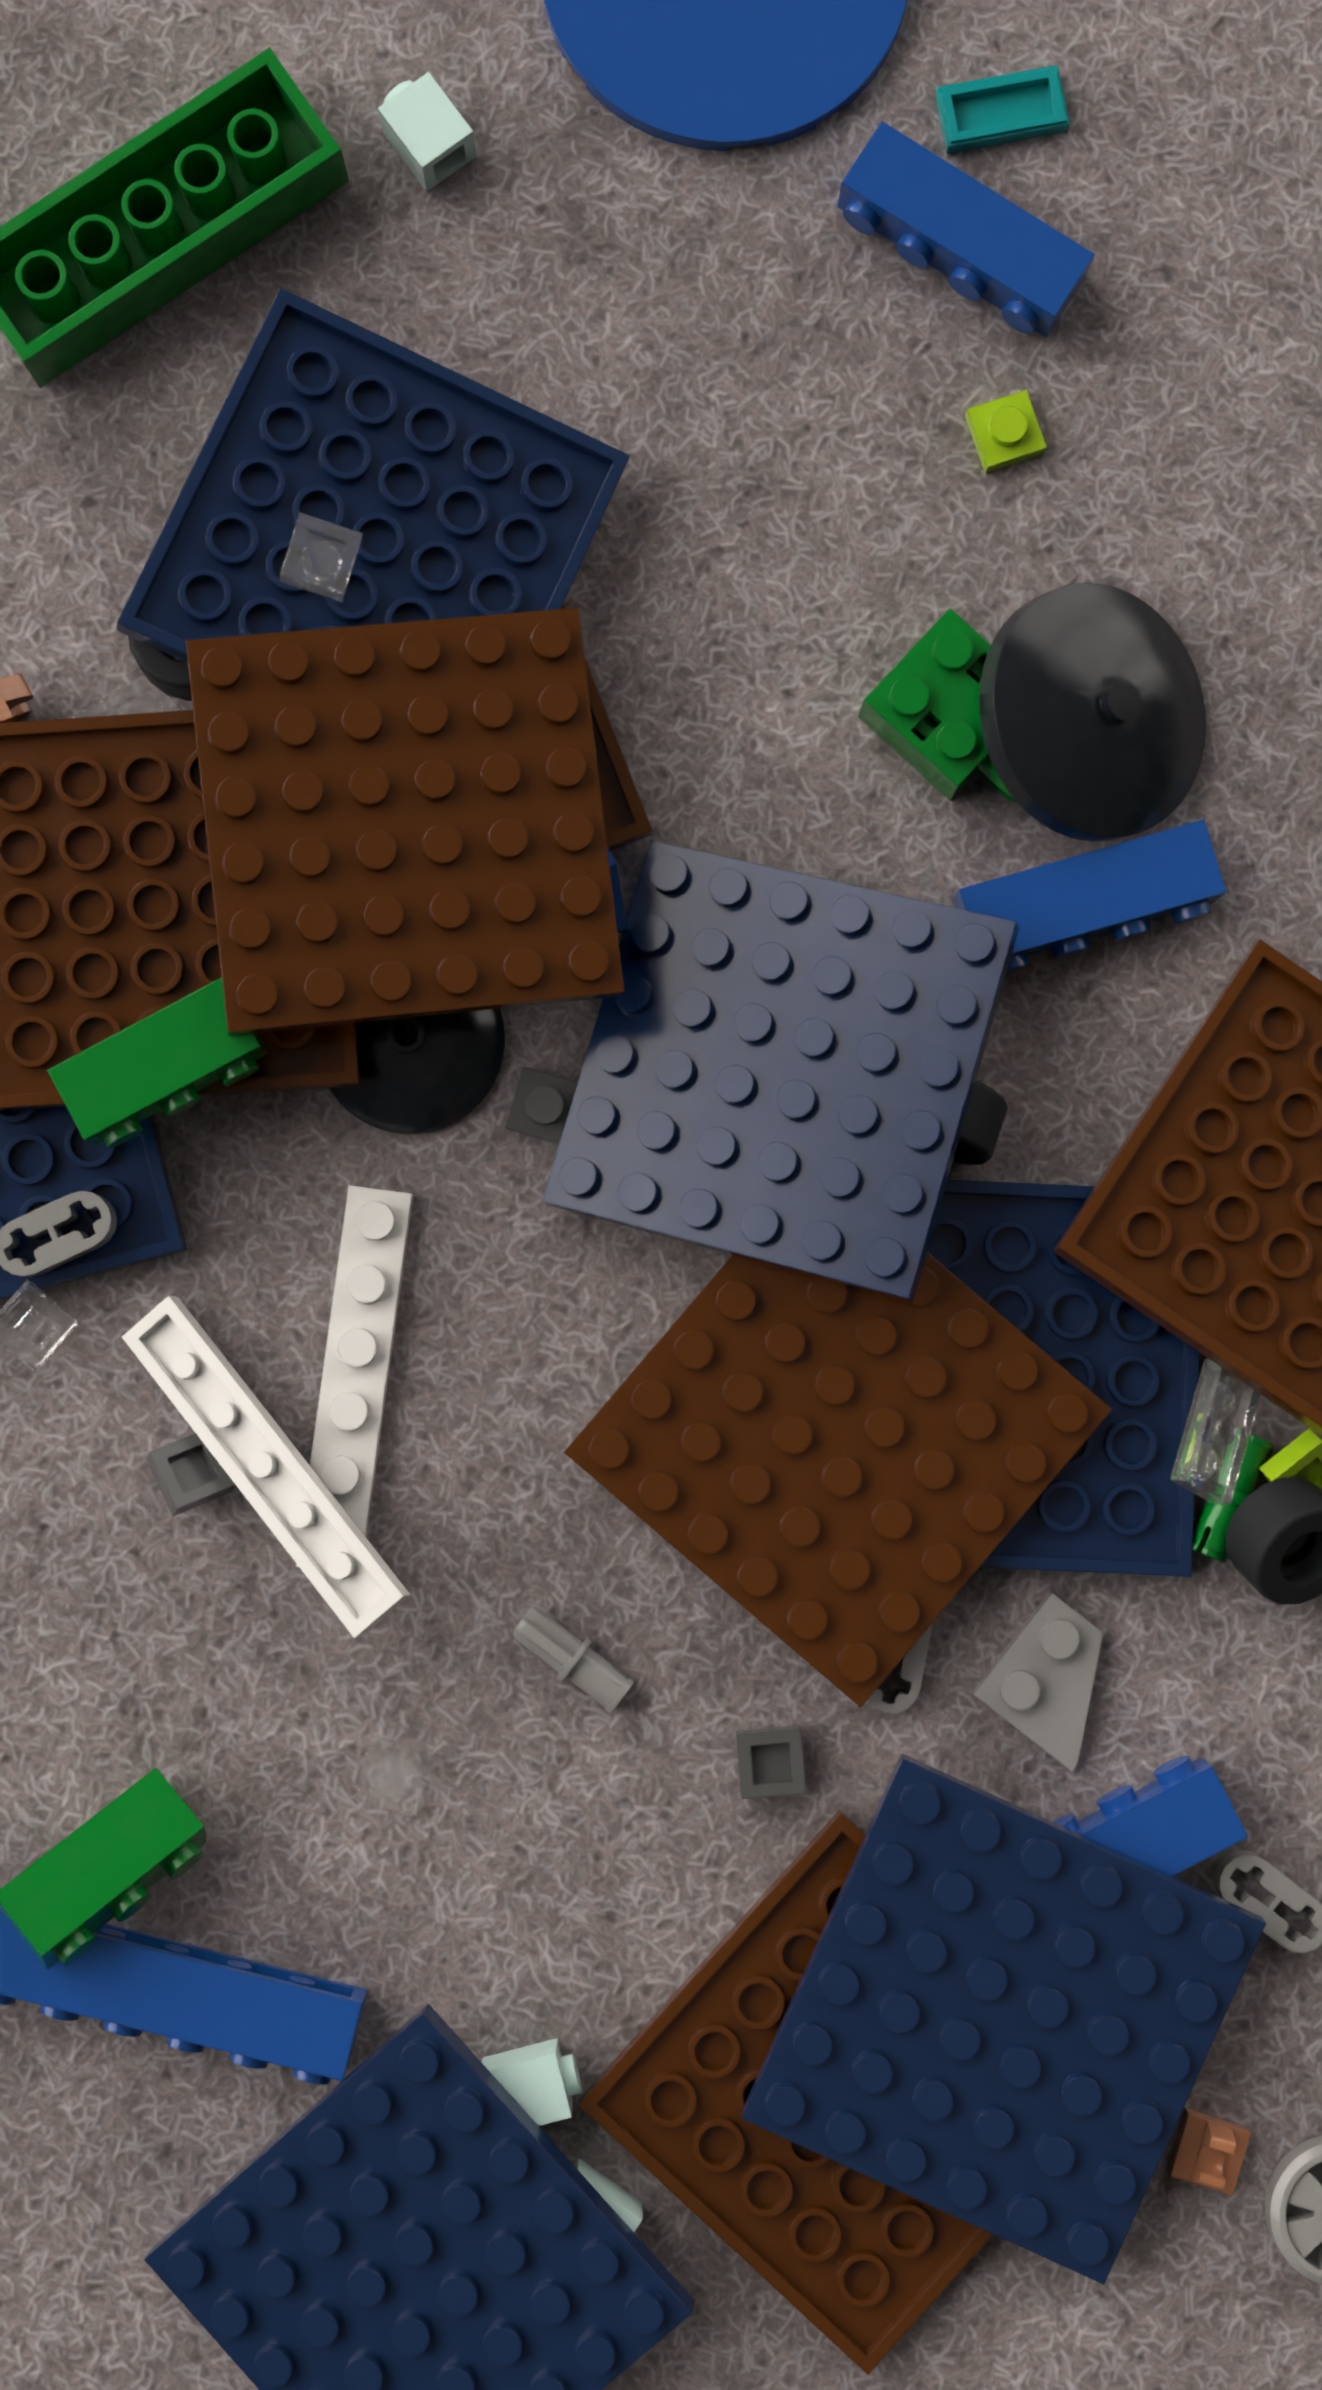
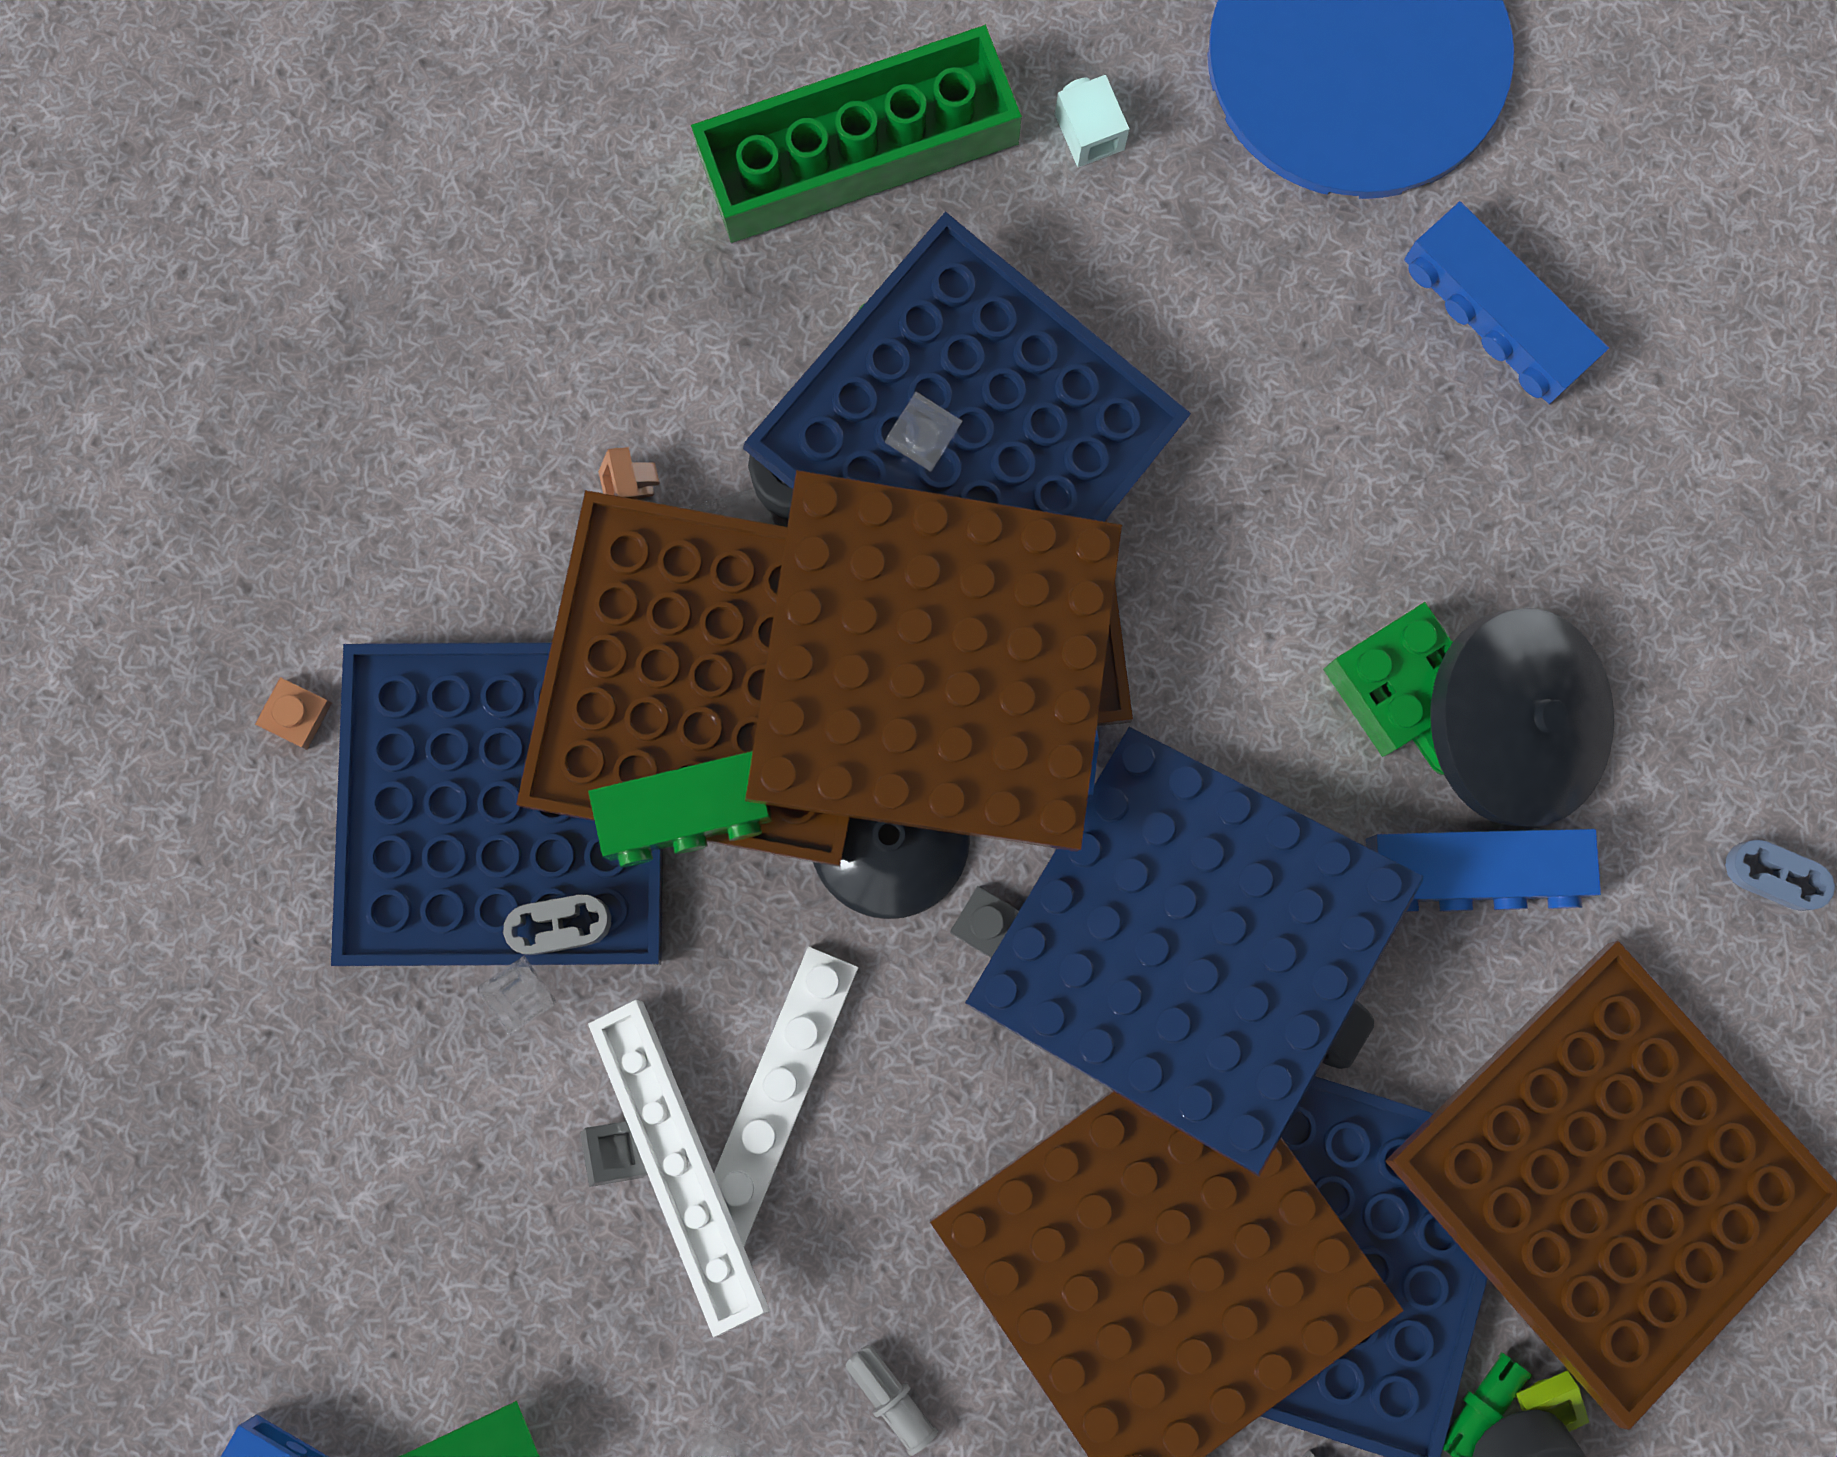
camera: 20 degrees right, 5 degrees down
(1002, 109) = (1555, 216): teal tile -> none
(1005, 431) = (1499, 470): lime plate -> none
(1215, 1435) = (1487, 1356): clear plate -> none

